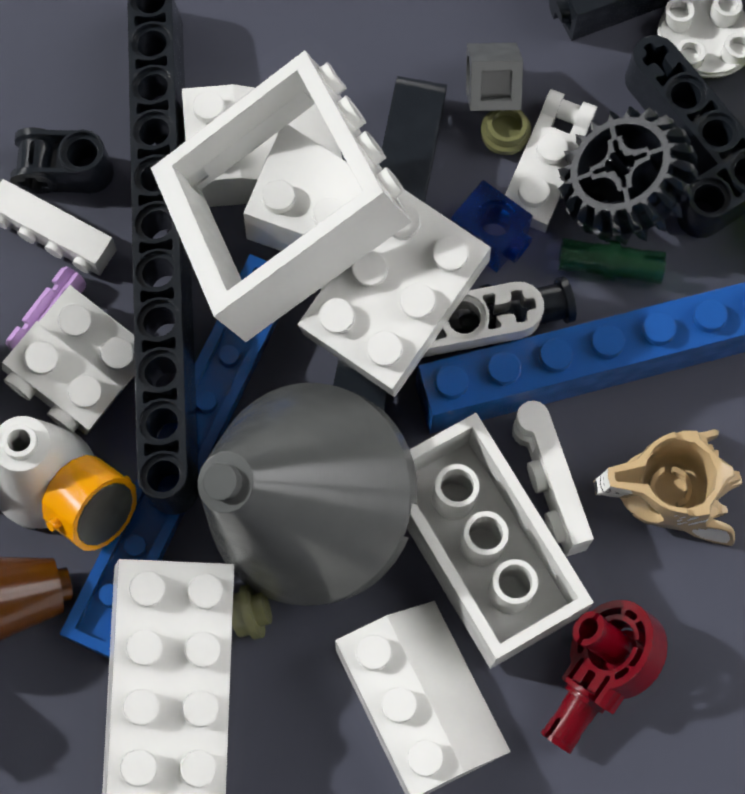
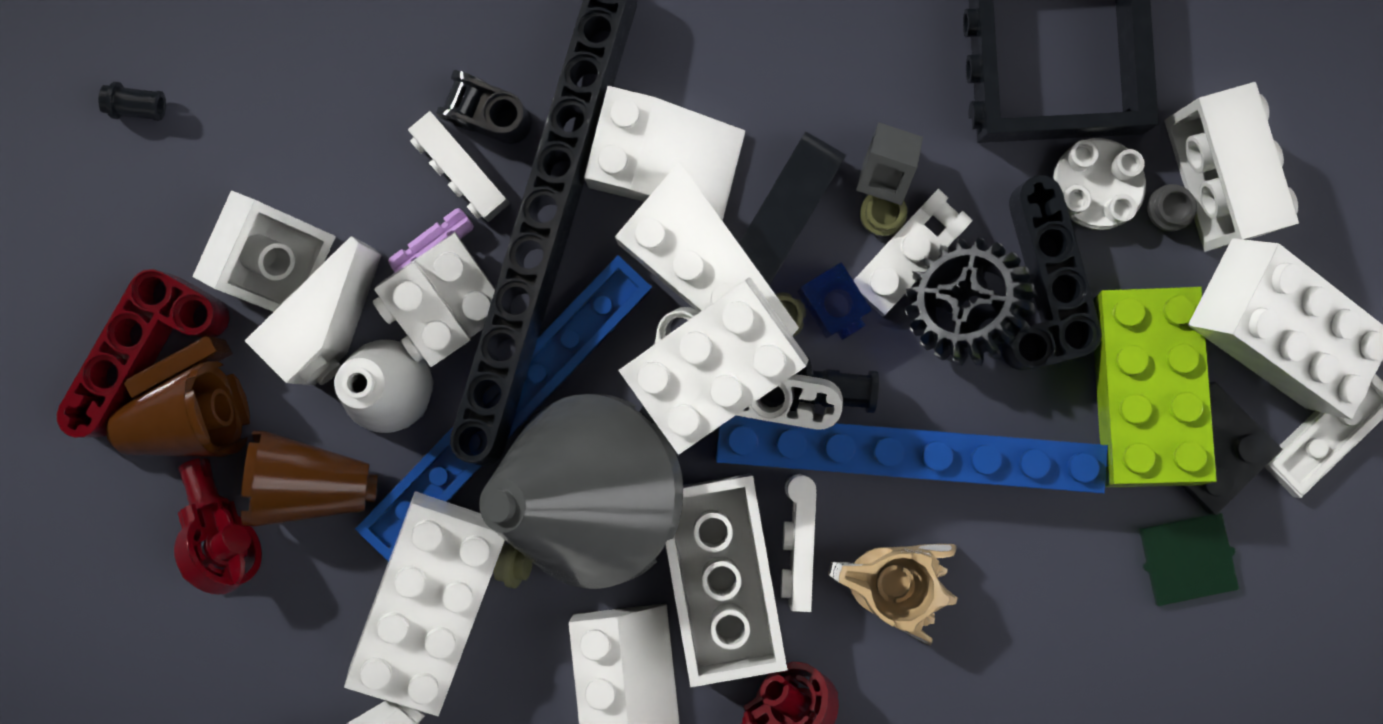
camera: 25 degrees right, 15 degrees up
(89, 502) = (408, 436): light orange piece -> none
(319, 254) = (569, 245): white window -> none
(612, 260) = (927, 367): clear green pin -> none

